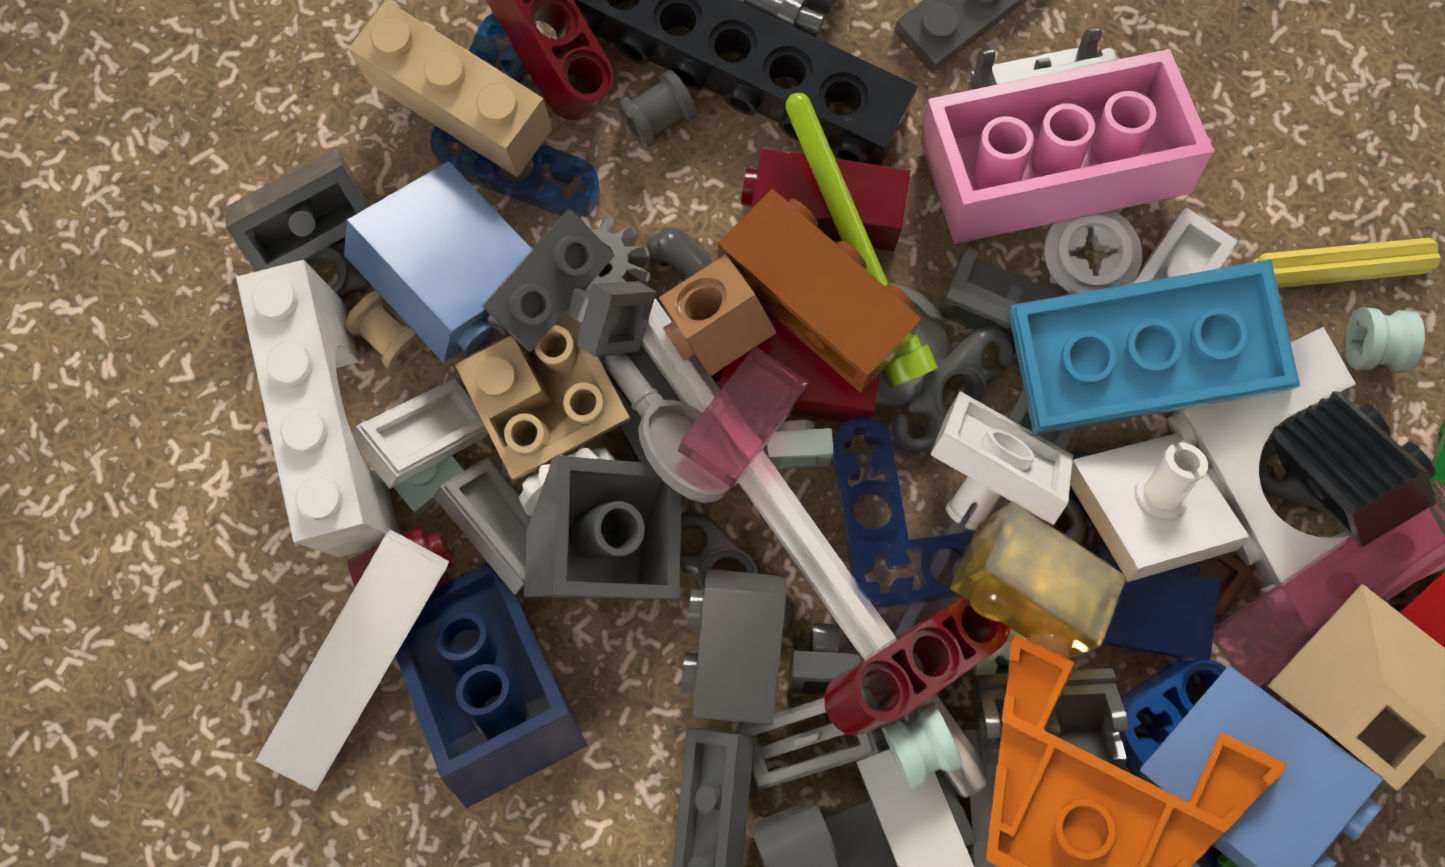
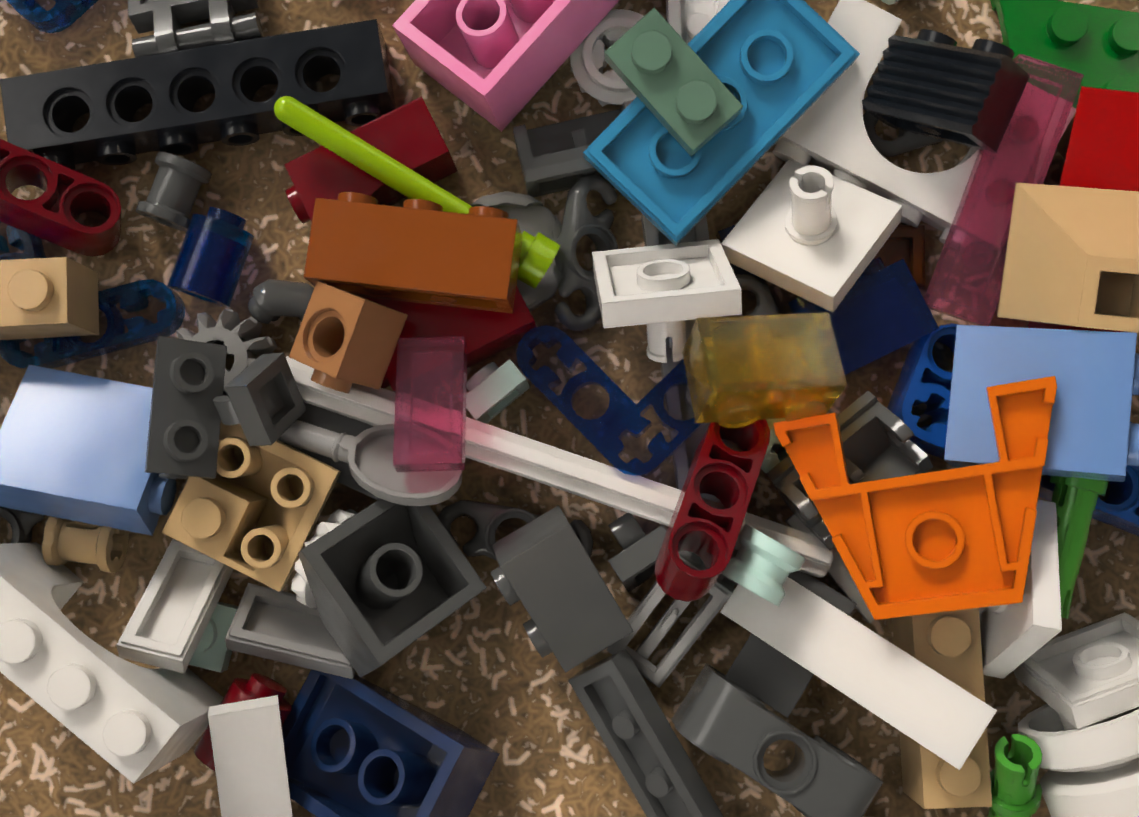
camera: 30 degrees left, 5 degrees up
(649, 180) = (212, 257): none -> clear blue brick
(1126, 300) = (672, 82): none -> sand green plate

